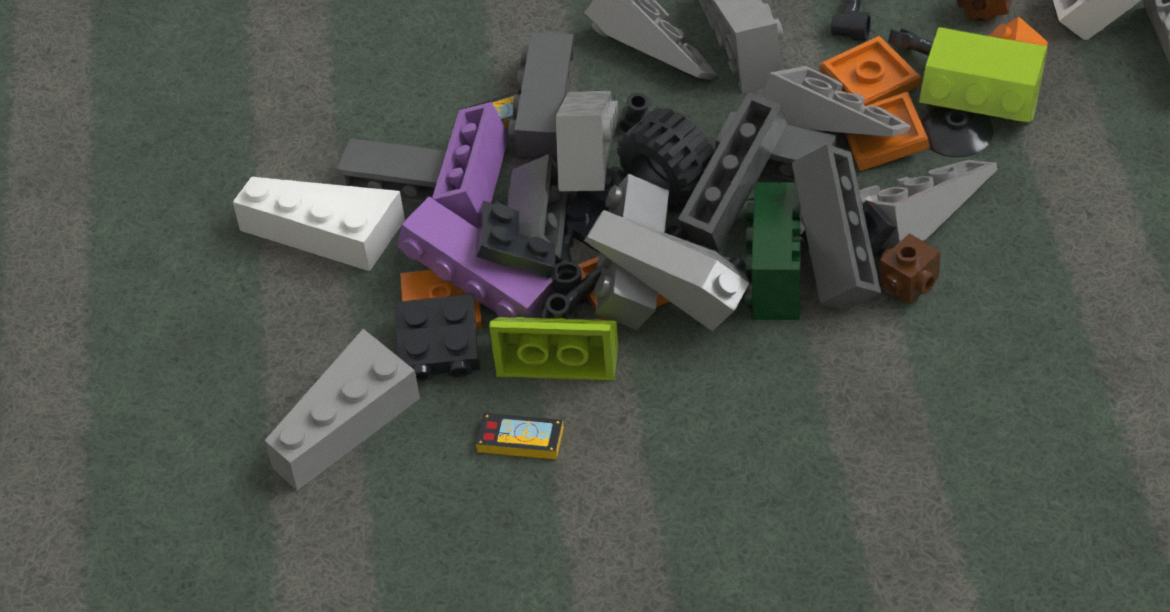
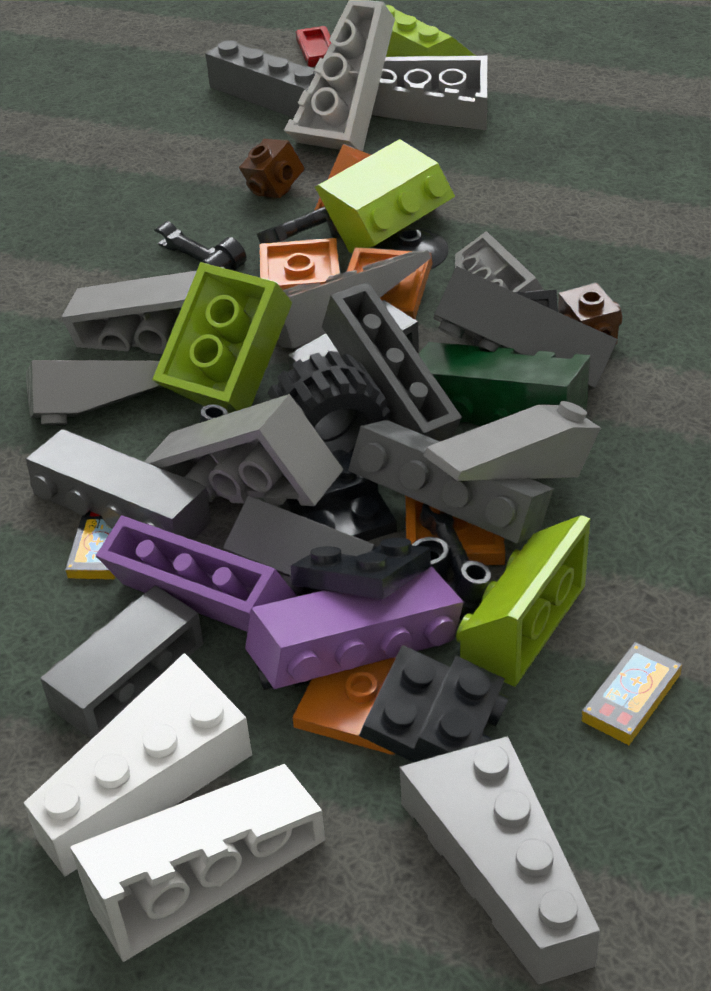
camera: 65 degrees left, 5 degrees down
(263, 270) = (194, 856): none -> white wedge
(710, 66) = (223, 338): none -> lime slope

